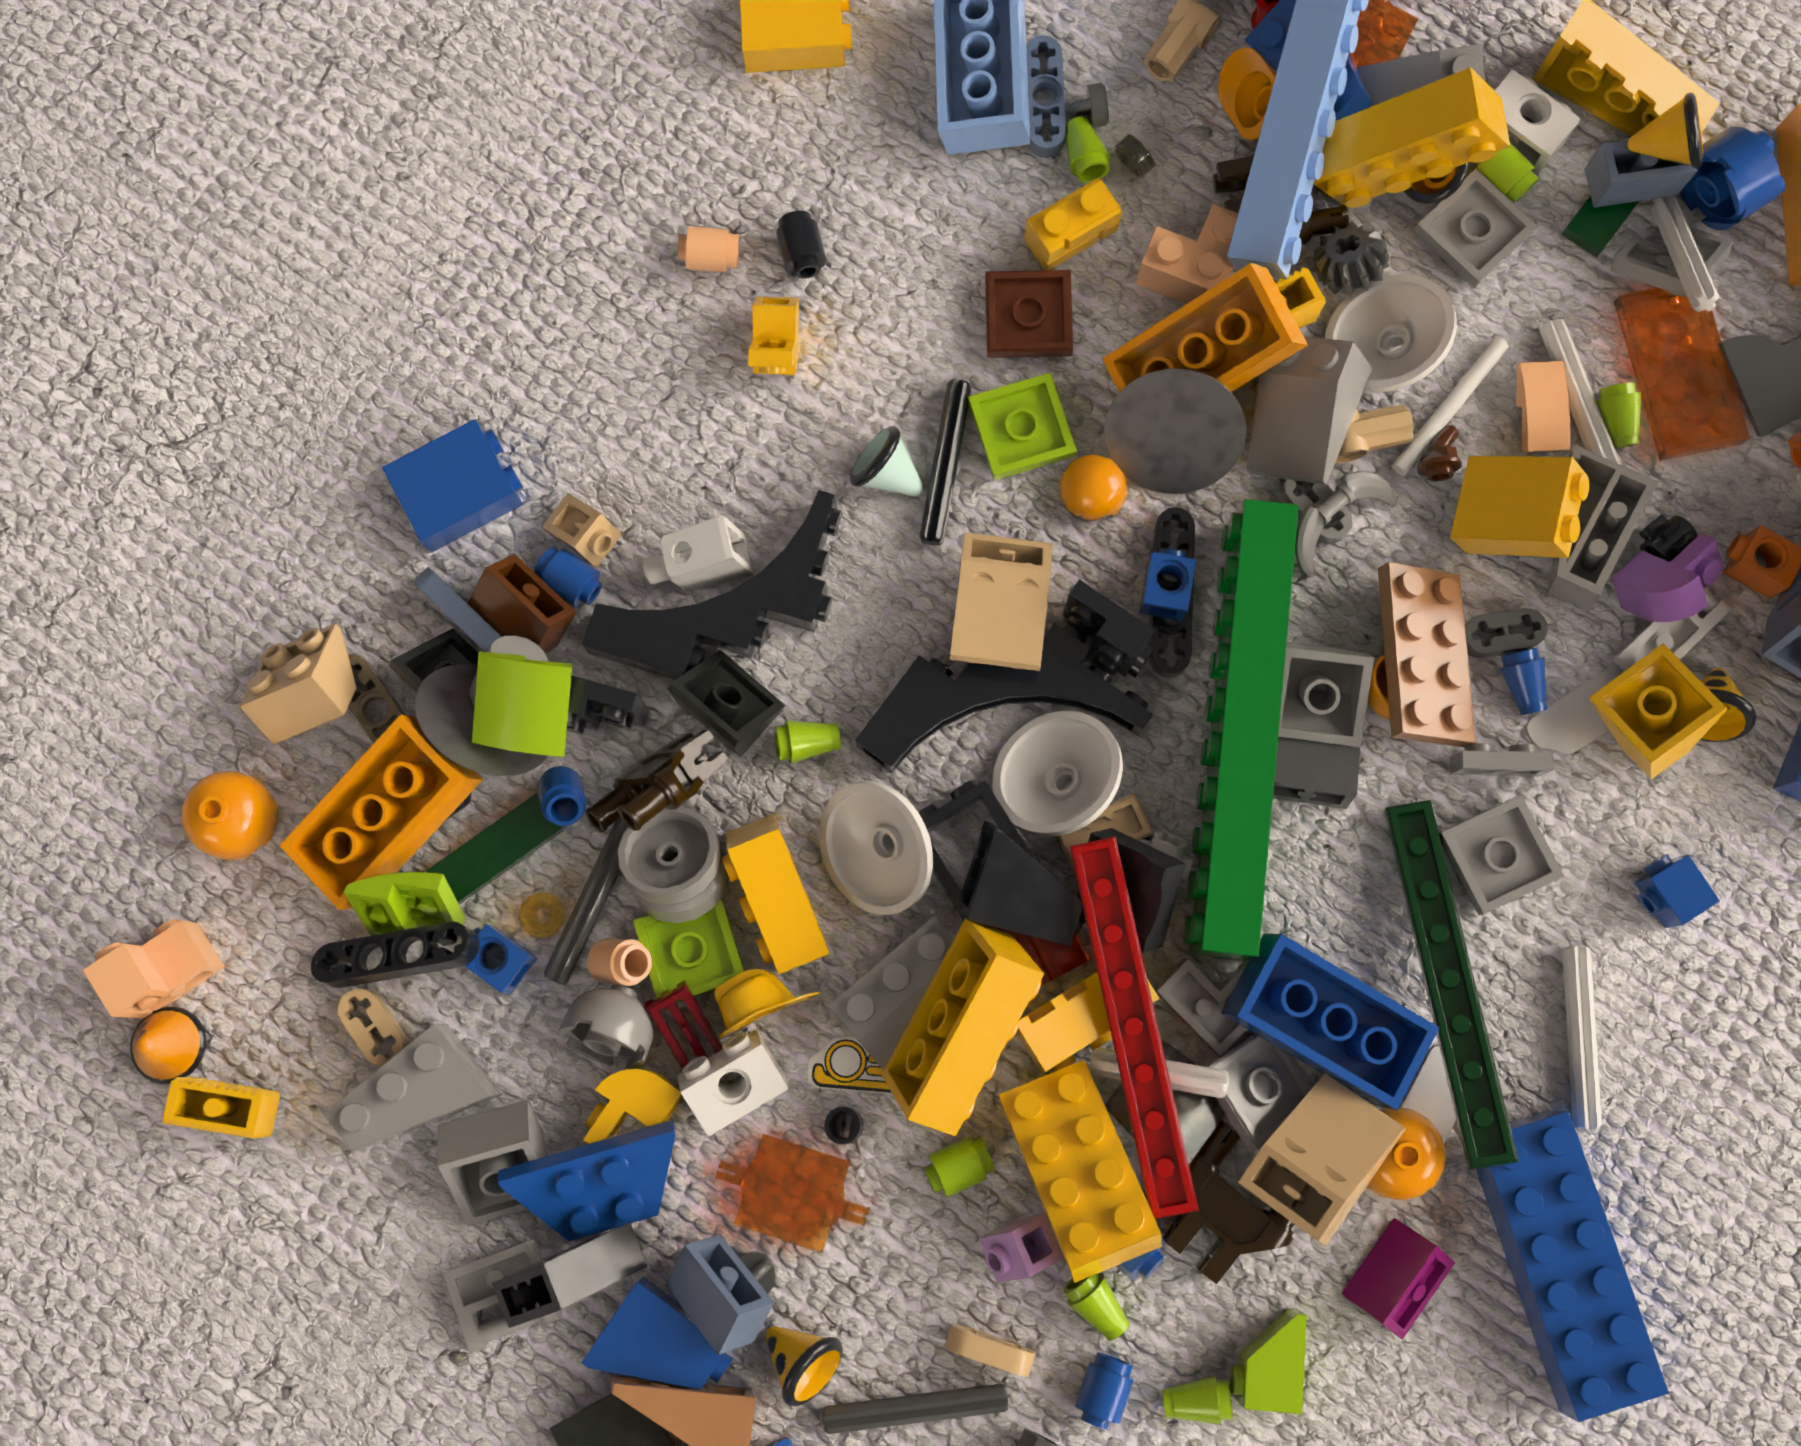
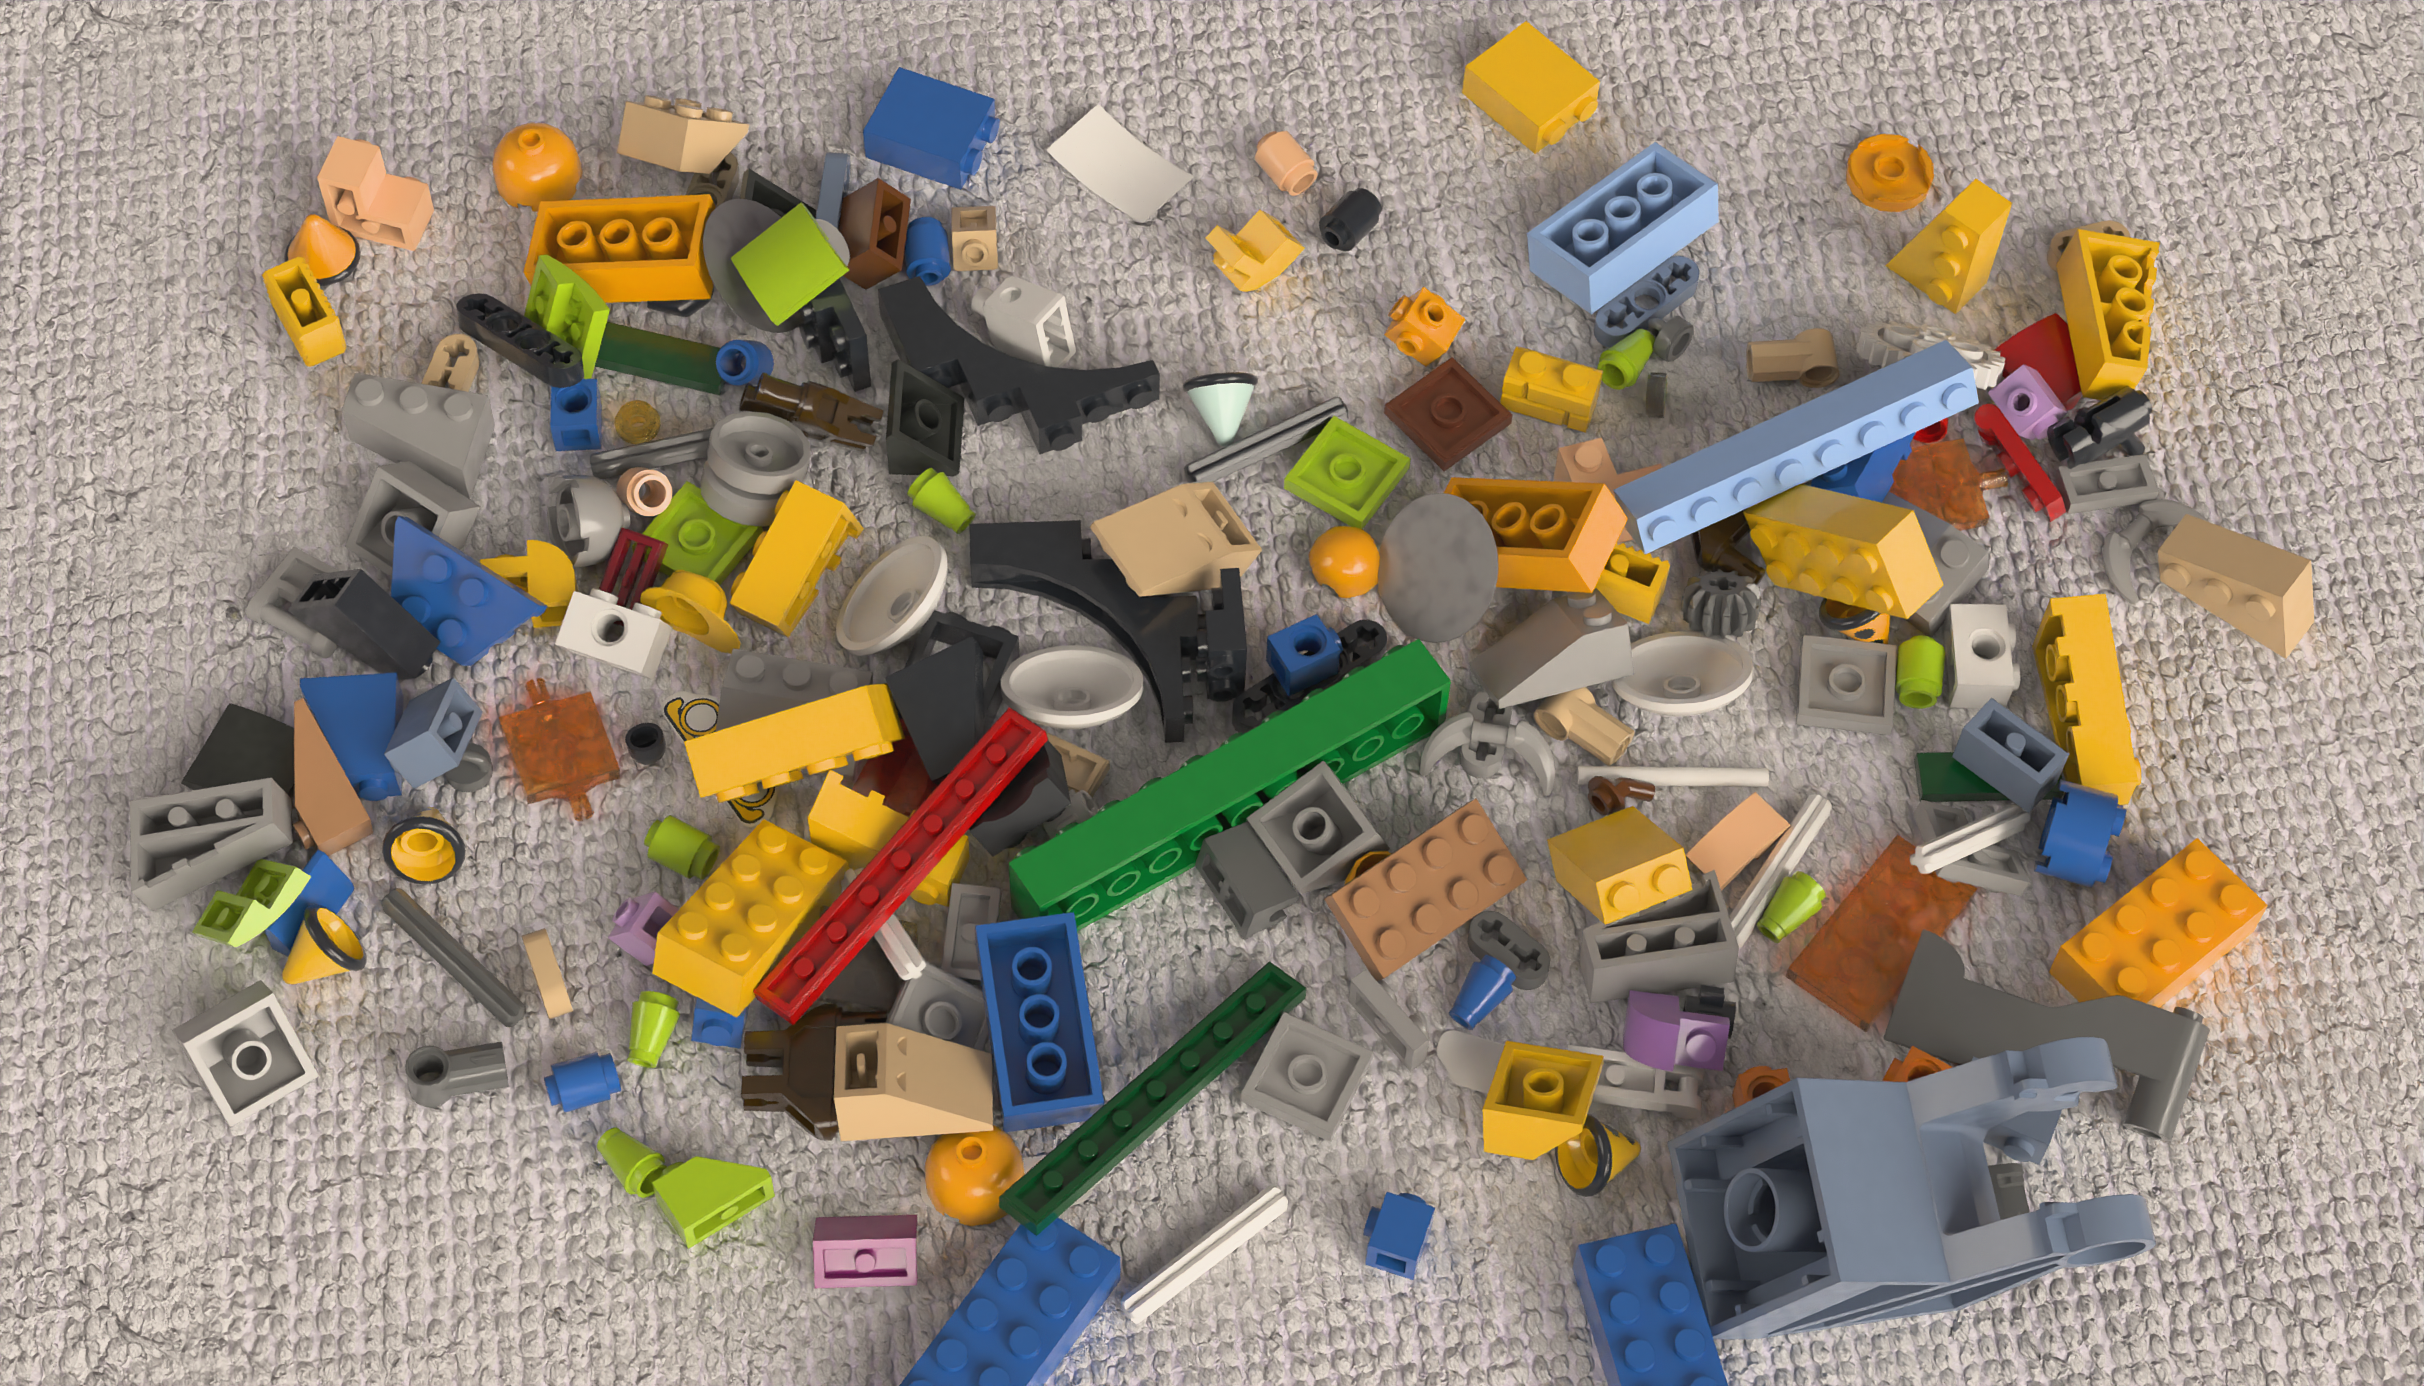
camera: 45 degrees right, 20 degrees down
(603, 371) = (1117, 165): none -> white sticker
(946, 269) = (1423, 326): none -> light orange brick
(1673, 135) = (2049, 736): yellow hat -> none

